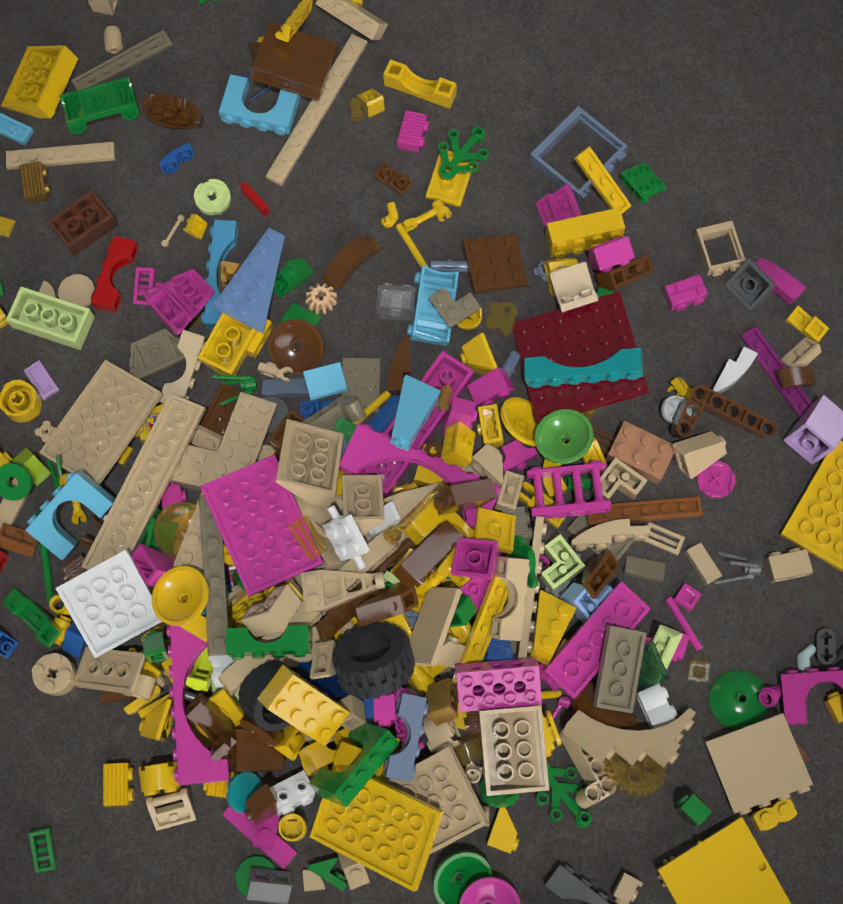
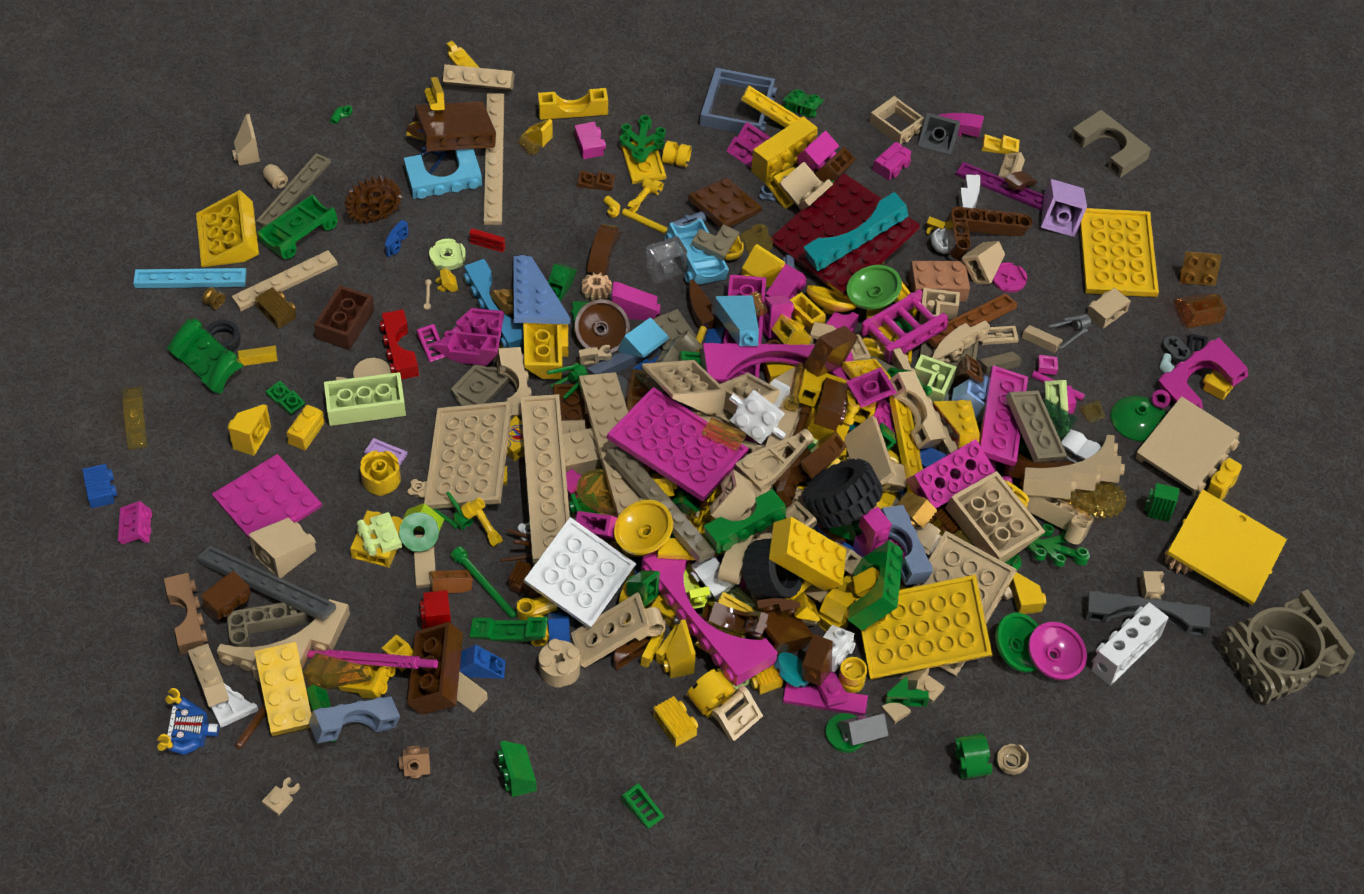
camera: 35 degrees left, 20 degrees down
(45, 525) = (473, 549): medium azure arch -> none
(340, 335) = (635, 303): none -> dark pink slope
(480, 184) = (677, 154): none -> yellow wheel

